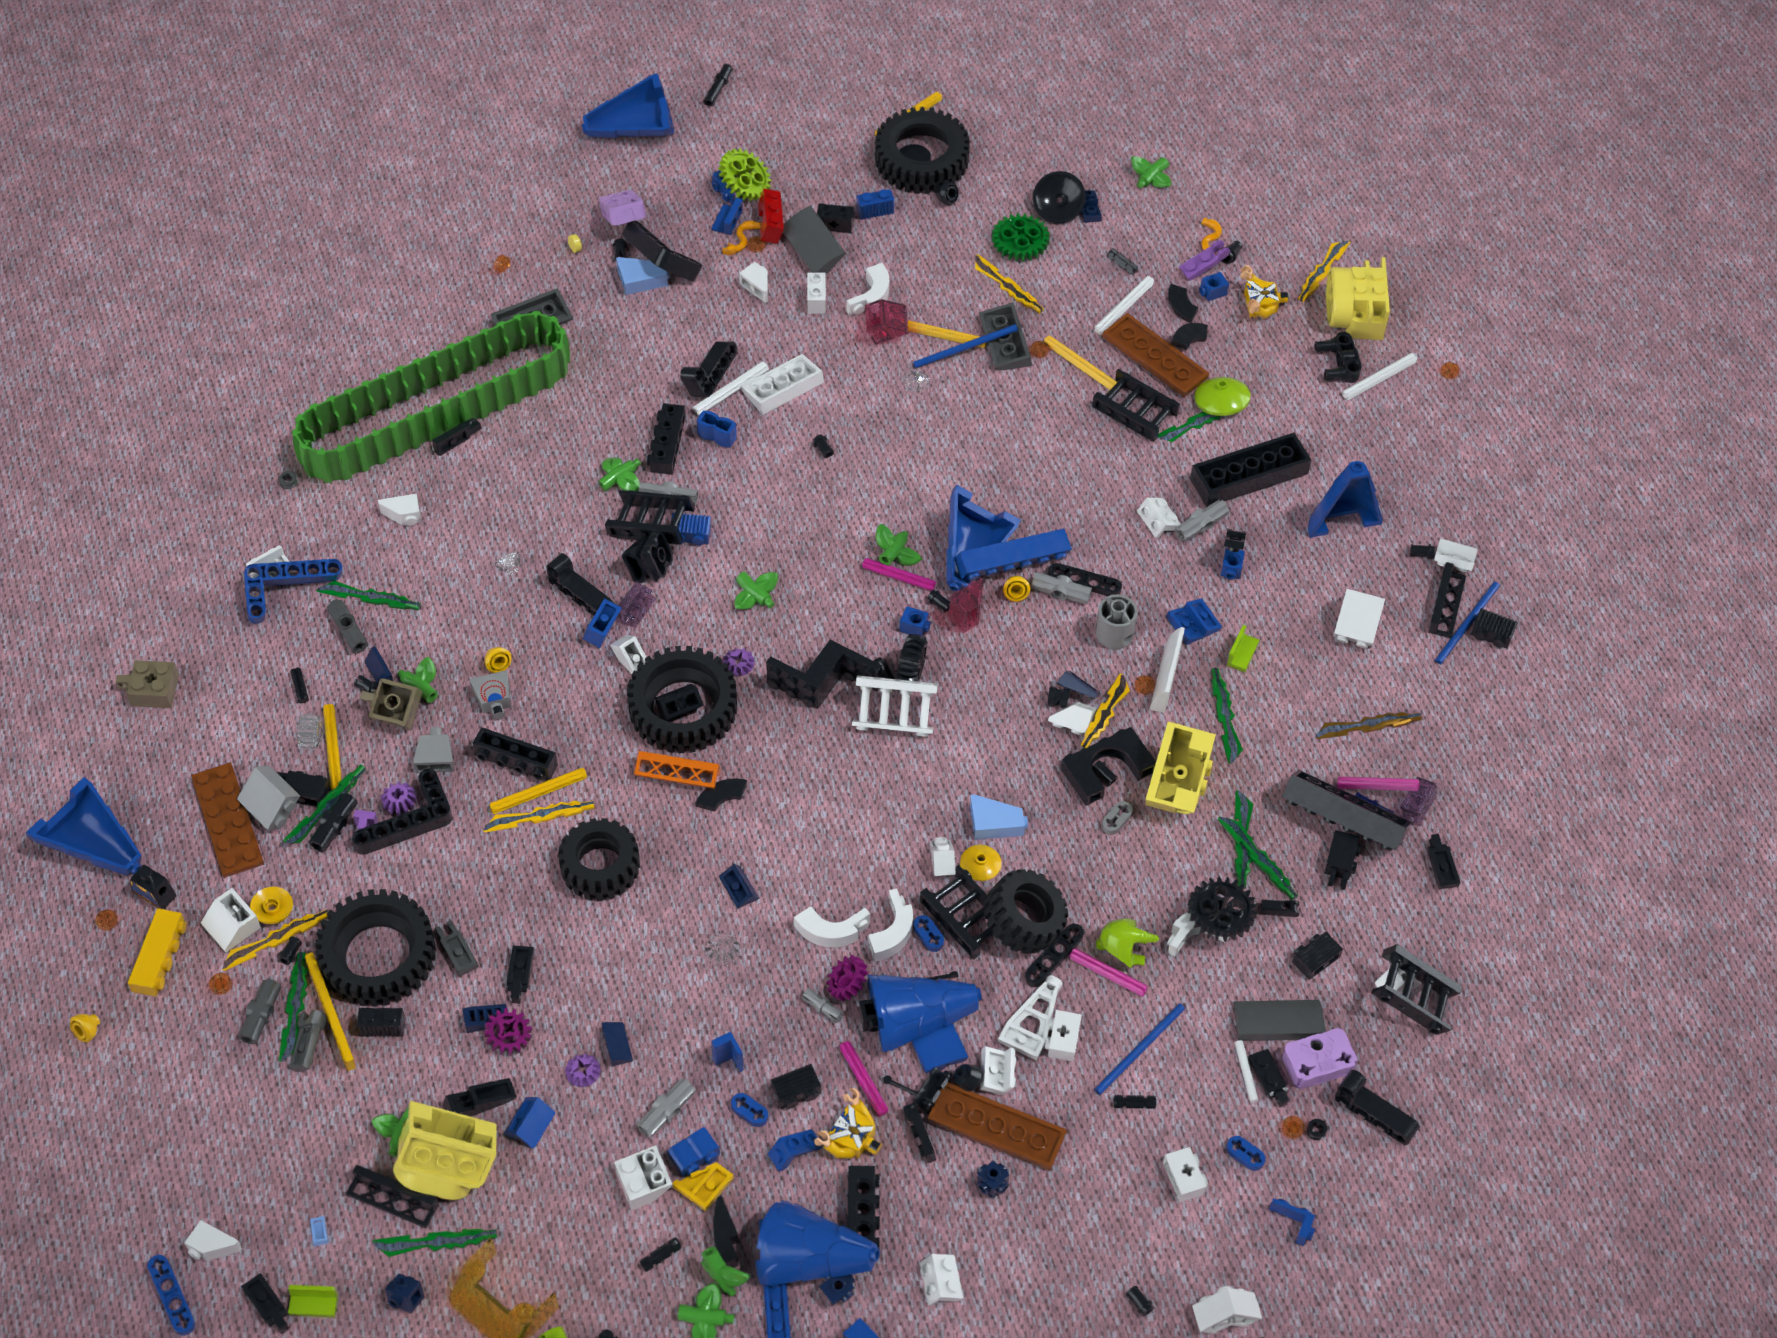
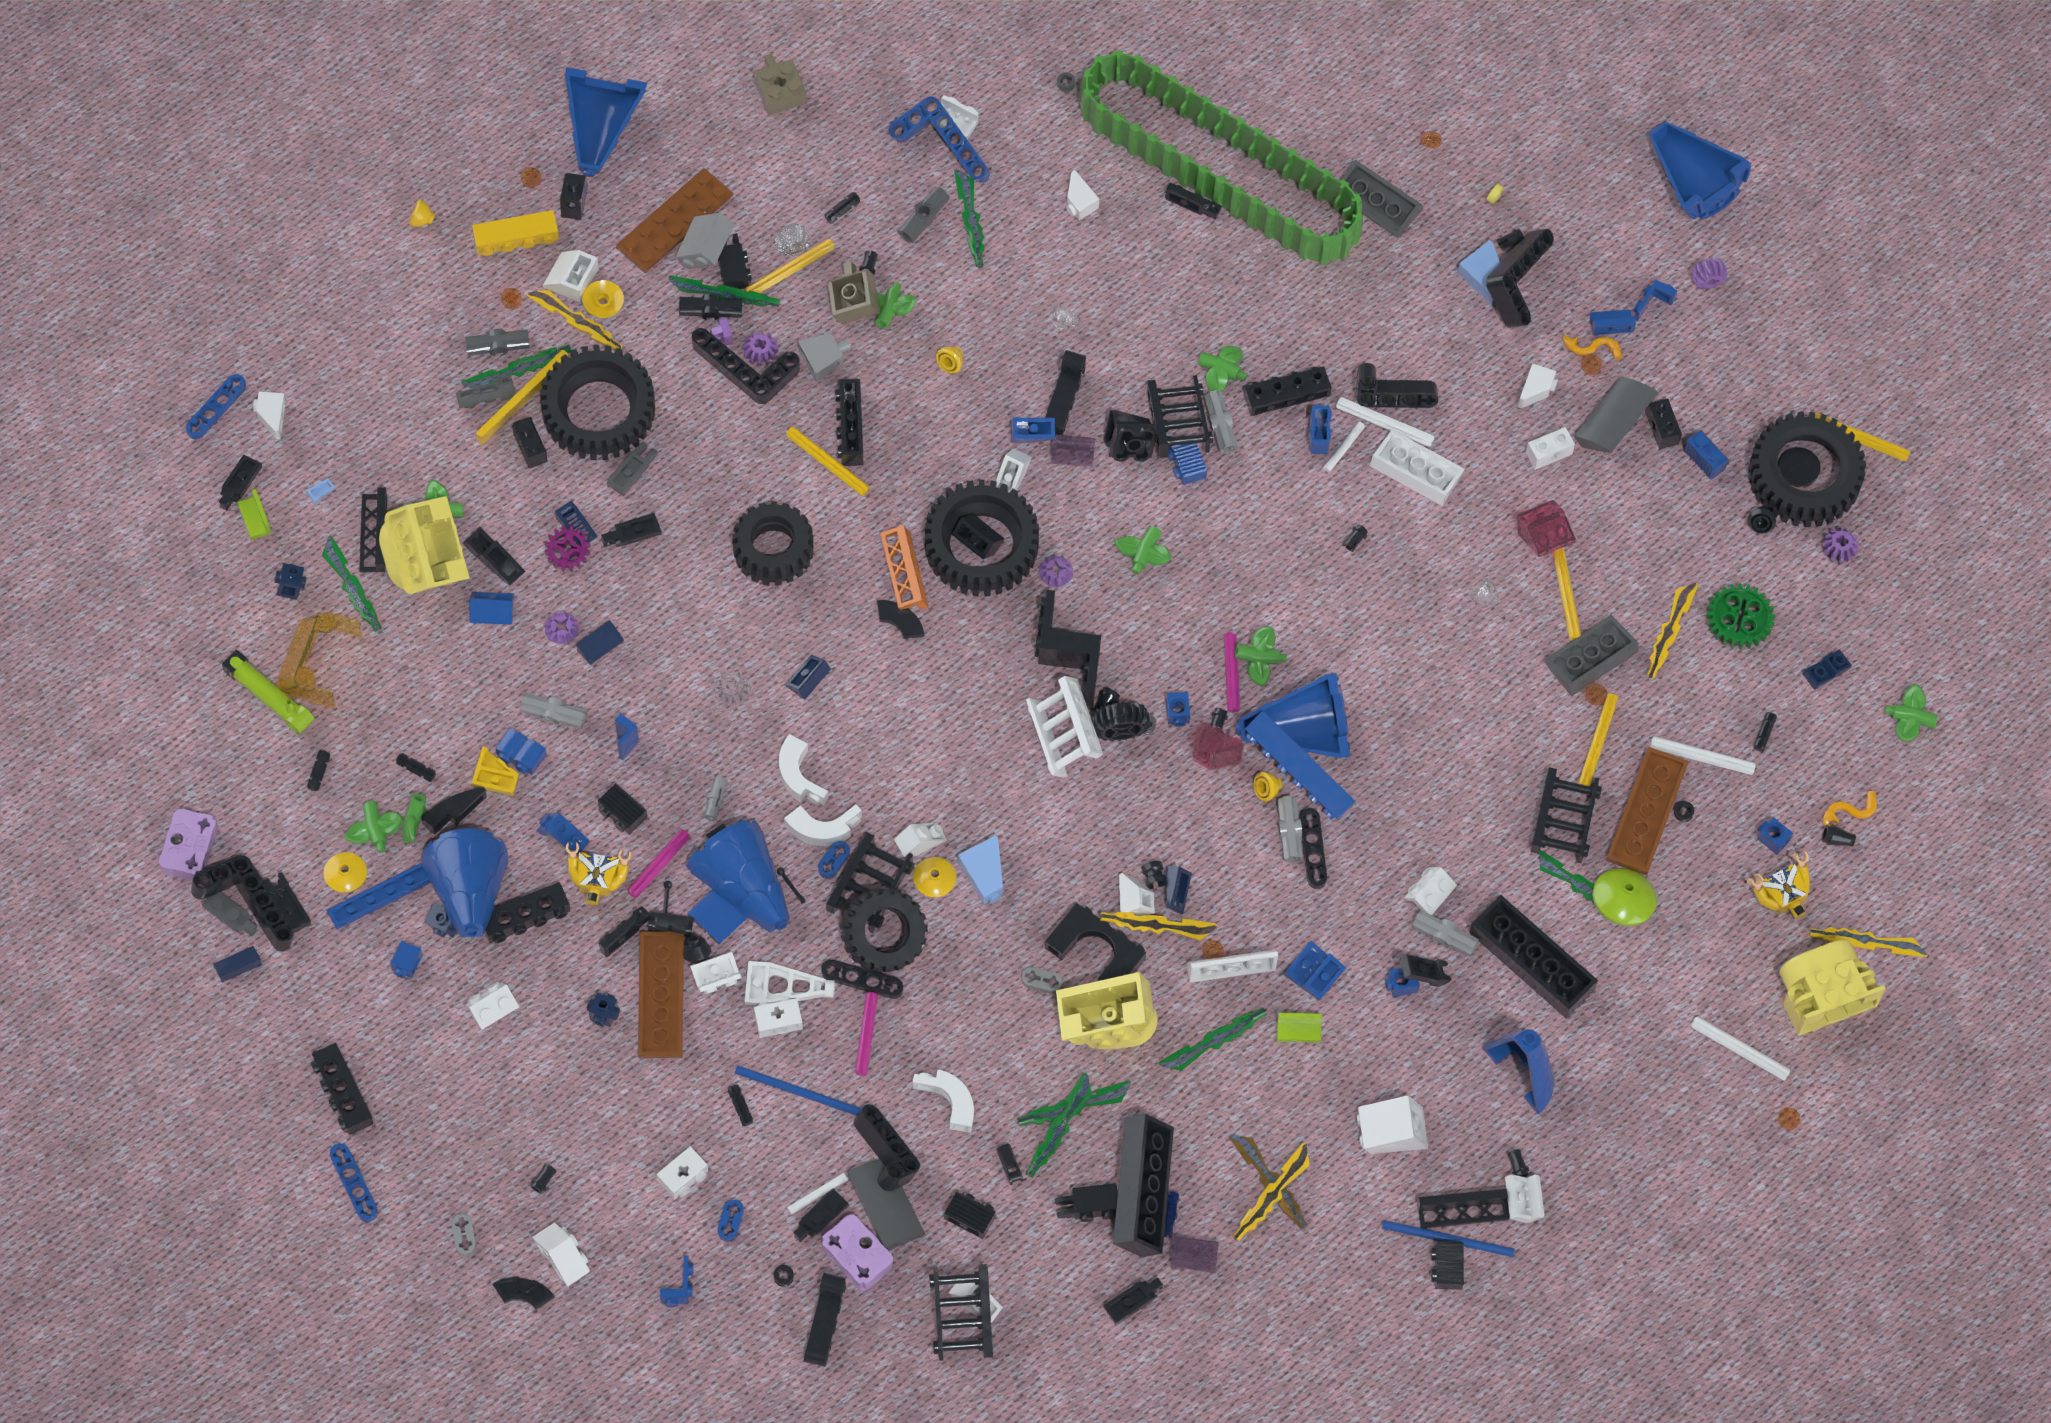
camera: 65 degrees right, 10 degrees up
(287, 955) = (567, 336): black pin -> none
(377, 666) = (892, 265): dark blue slope -> none
(492, 693) = (911, 373): light grey torso -> none
(538, 815) = (803, 474): yellow sword -> none
(622, 207) = (1557, 215): lavender axle -> none
(643, 1177) = (475, 718): white slope -> none
(720, 80) = (1796, 231): black pin -> none
(725, 141) = (1709, 273): none -> medium lavender gear
(739, 427) = (1344, 447): none -> white bar
(747, 1114) = (579, 779): blue beam -> none
(751, 172) = (1680, 295): lime gear -> none
(771, 210) = (1630, 360): red arch -> none
(847, 978) = (748, 805): magenta gear -> none
(878, 279) = (1585, 507): white arch -> none
(964, 346) = (1556, 619): blue piece -> none
(992, 157) = (1848, 542): none -> medium lavender gear
(1056, 186) = (1804, 626): black dish -> none
(1104, 773) = (1087, 949): black pin -> none
(1116, 621) = (1264, 892): light grey cylinder -> none
(1120, 936) = (901, 1025): lime piece -> none
(1168, 329) = (1679, 816): none -> black bush
(1181, 305) = (1736, 811): black tile -> none
(1189, 333) = (1691, 832): black tile -> none
(1204, 260) = (1805, 812): medium lavender hinge -> none
(1207, 897) = (962, 1122): black gear -> none
(1230, 993) = (889, 1147): none -> black beam
(1293, 1127) = (776, 1254): clear orange tile -> none
(1346, 357) = (1745, 1004): black piece -> none
(1370, 783) = (1194, 1208): dark pink axle -> none
(1383, 726) = (1292, 1168): none -> yellow sword

